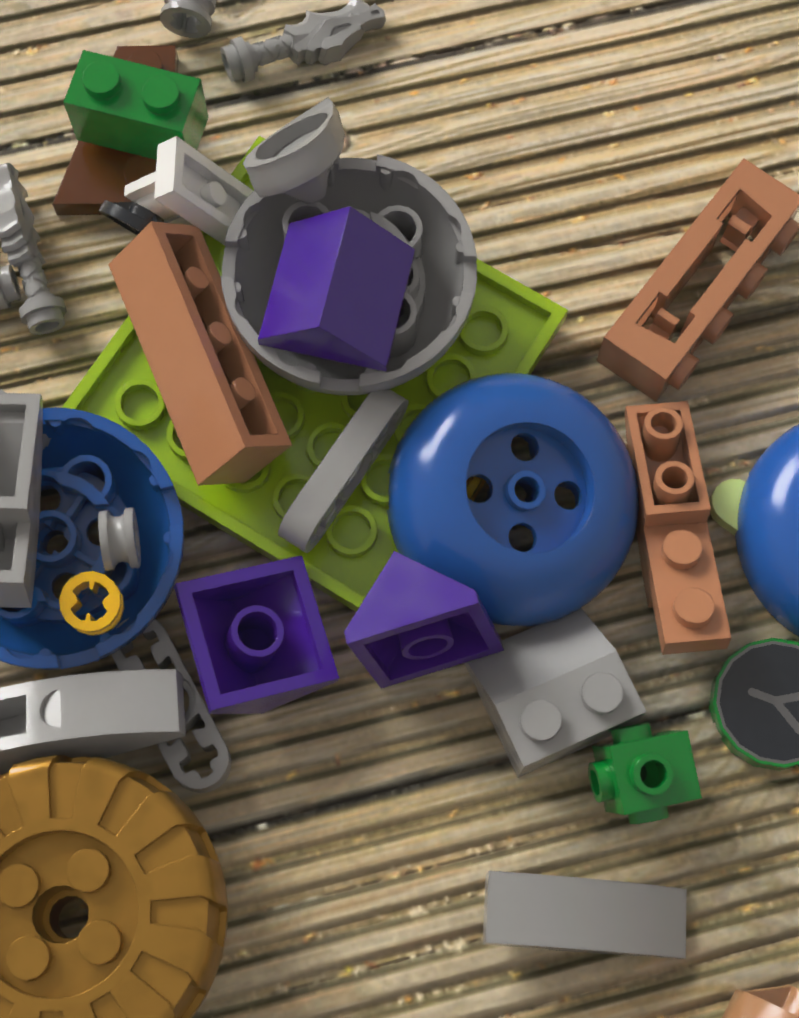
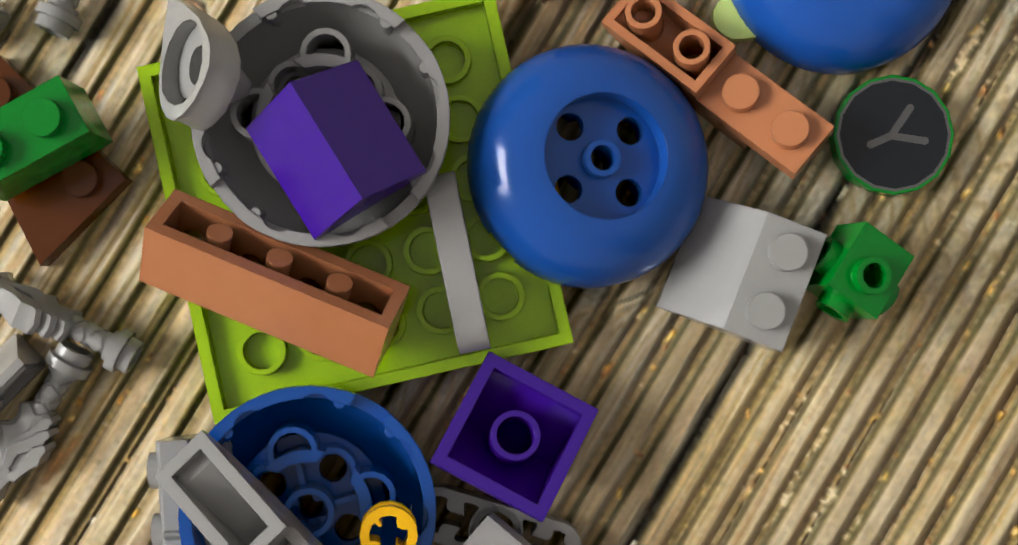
camera: 45 degrees left, 15 degrees up
(119, 539) = (363, 473): light grey bush -> none
(183, 187) = (135, 173): white piece -> none
(418, 624) = (613, 325): dark purple slope -> none
(584, 915) = (899, 404): light grey slope -> none

